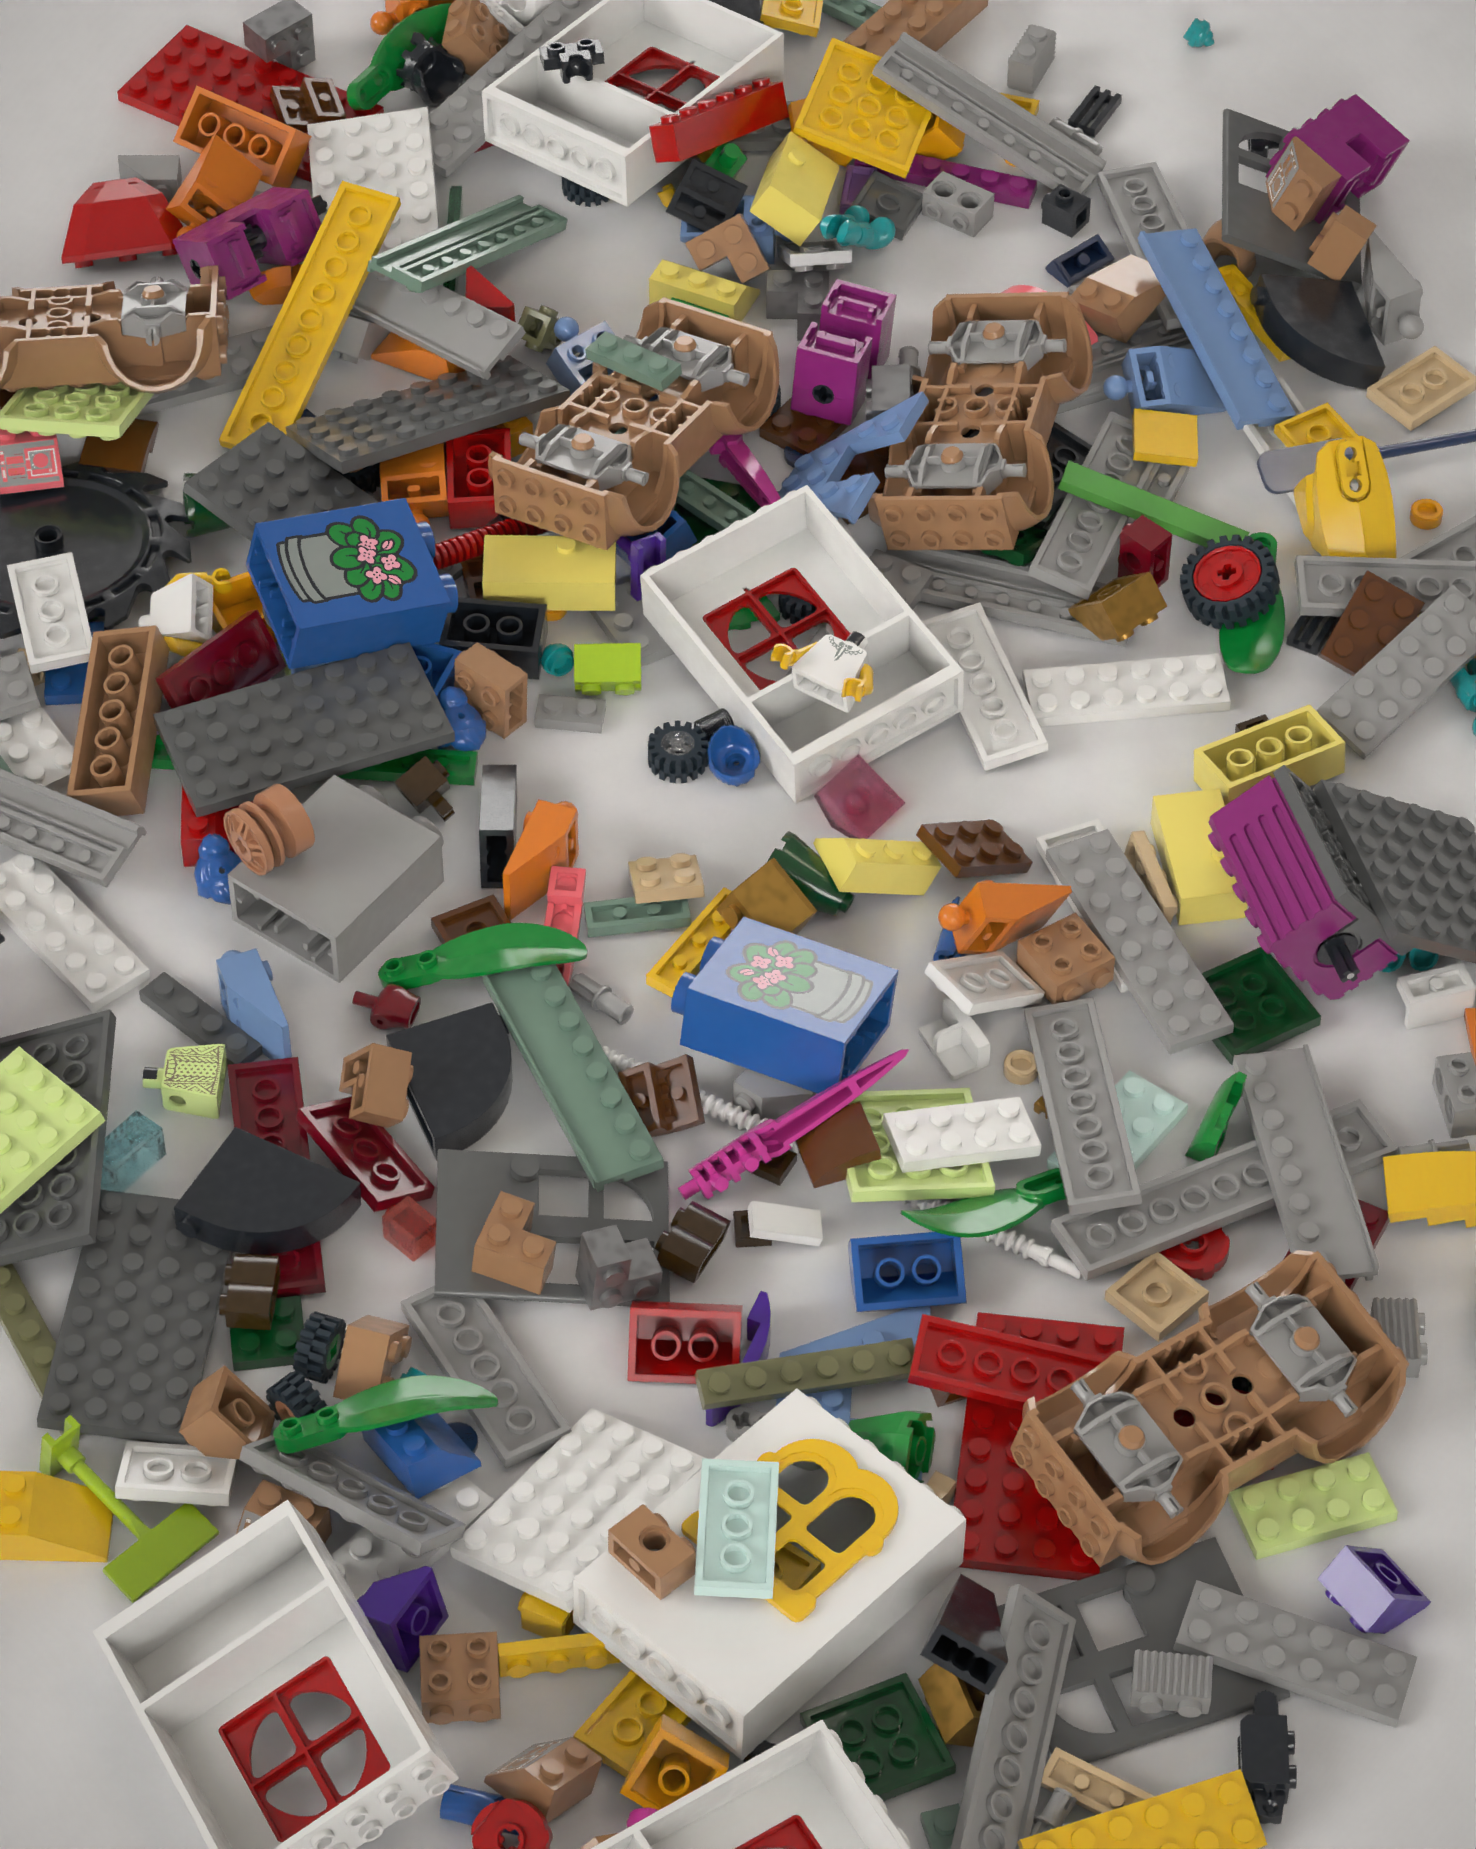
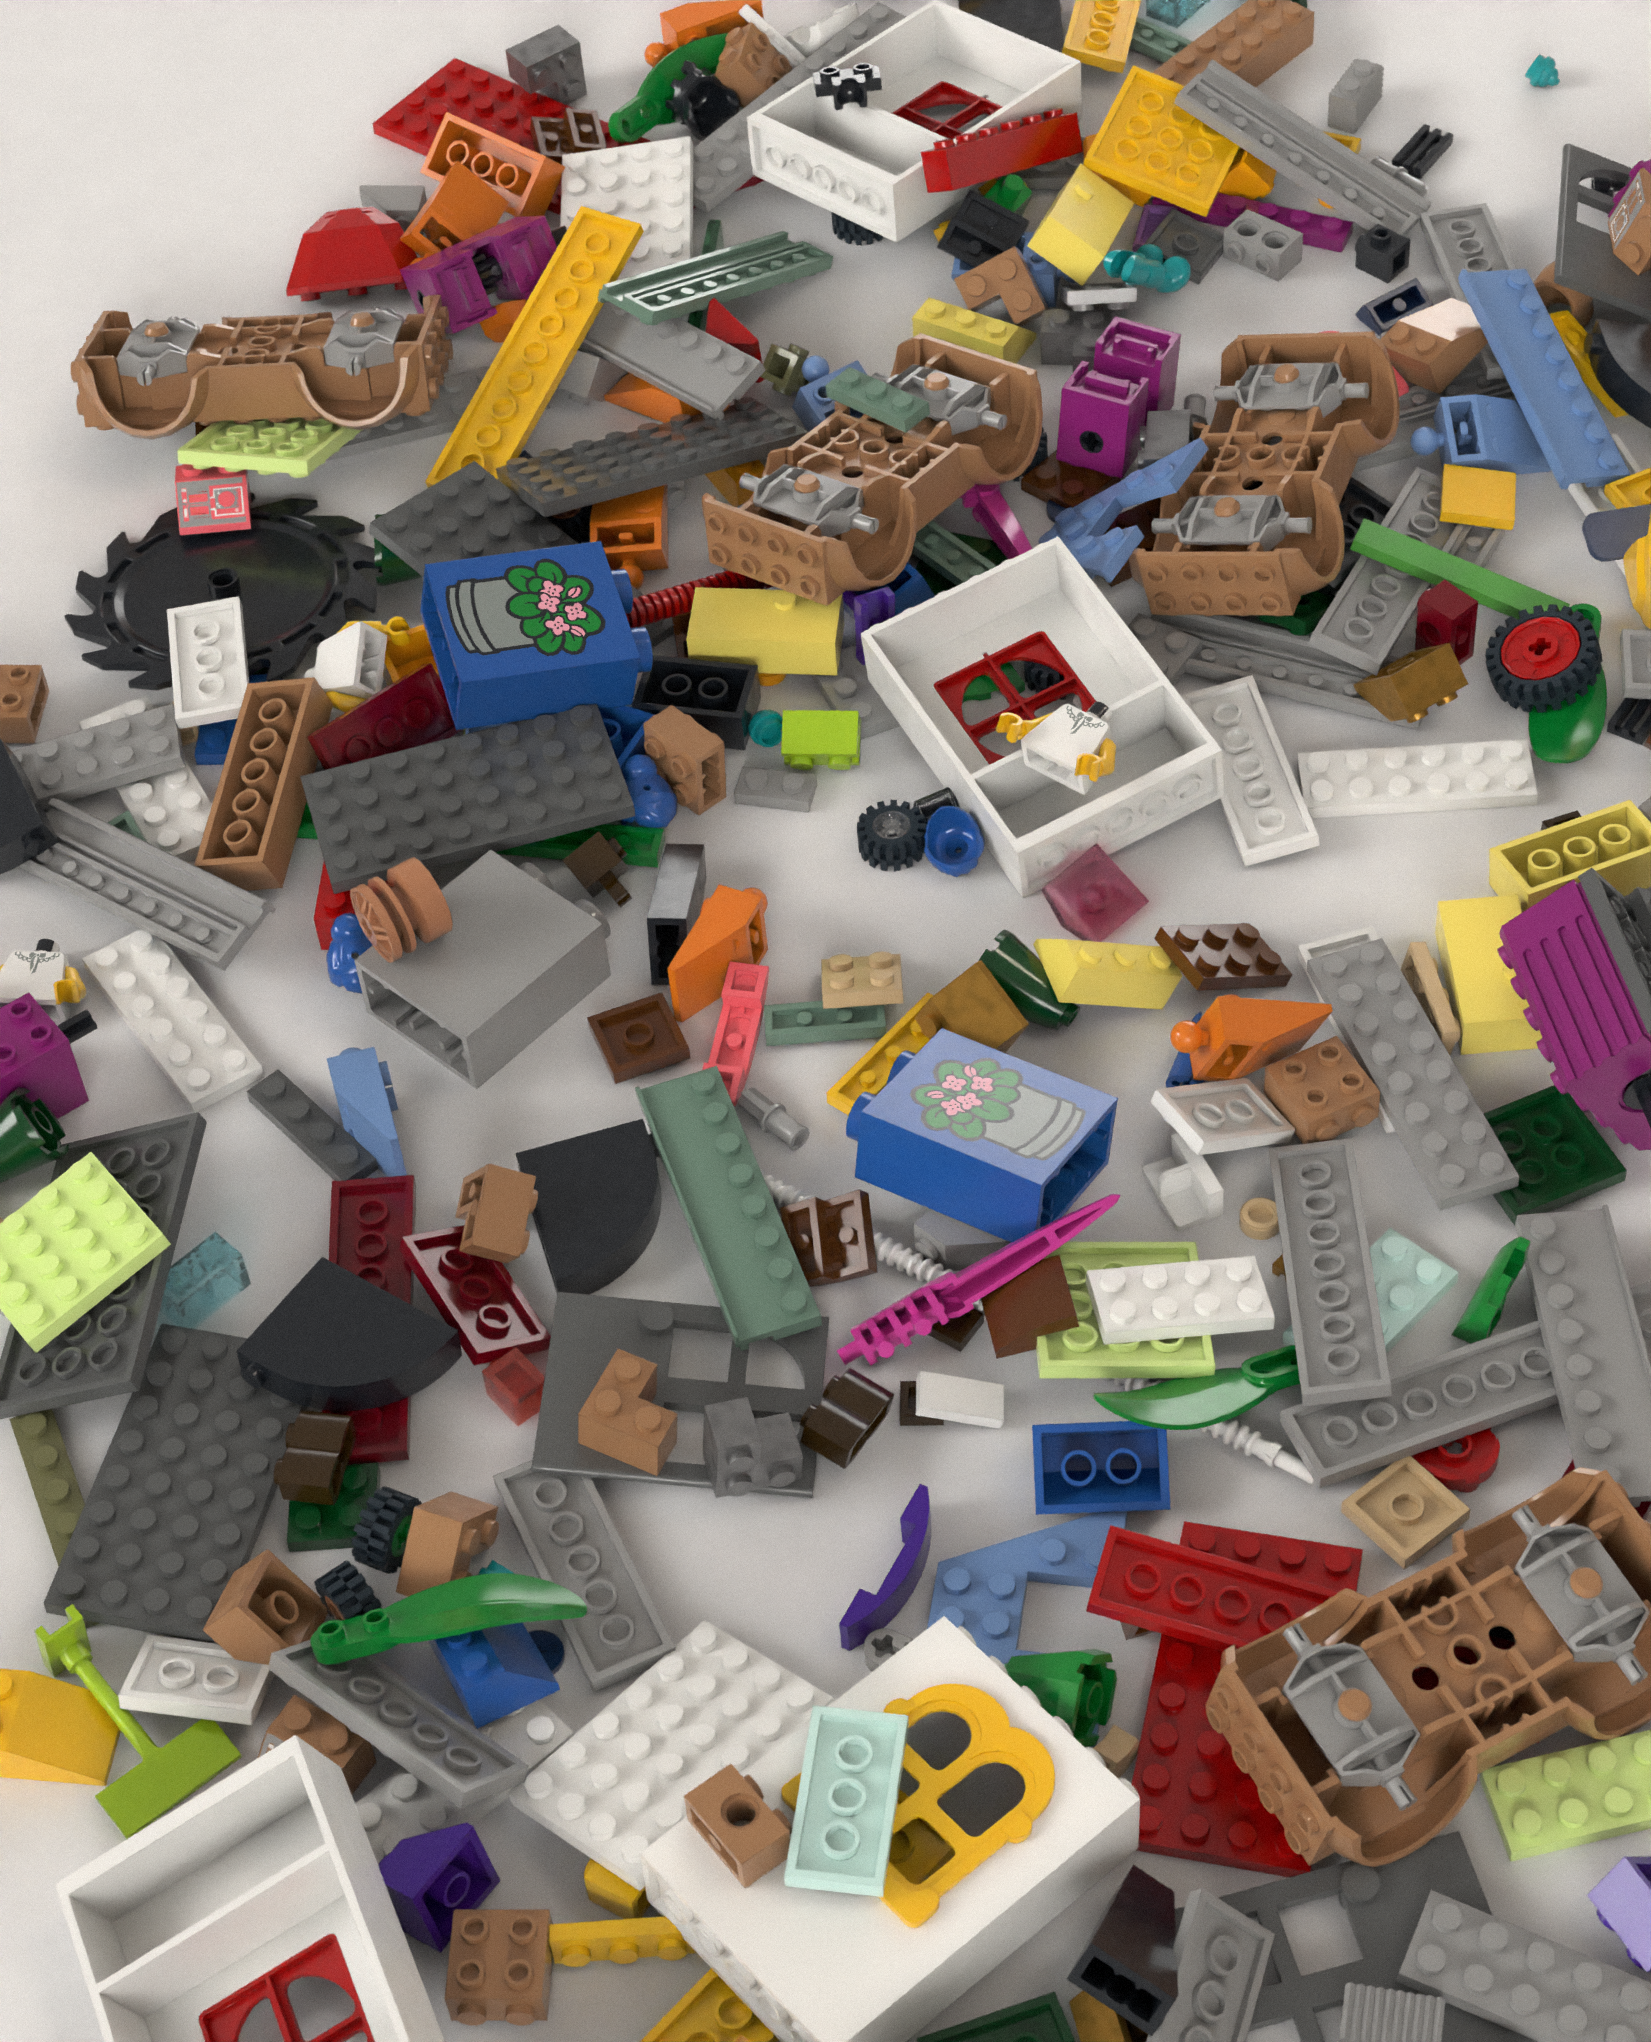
camera: 10 degrees right, 0 degrees up
(124, 454) = (323, 490): reddish brown slope -> none
(191, 1079) = (289, 1197): yellowish green torso -> none
(392, 1008) = (531, 1121): dark red piece -> none
(468, 479) = (684, 529): red slope -> none
(484, 953) = (641, 1061): green plant -> none
(679, 1338) = (823, 1542): red slope -> none
(806, 1372) = (962, 1592): olive plate -> none

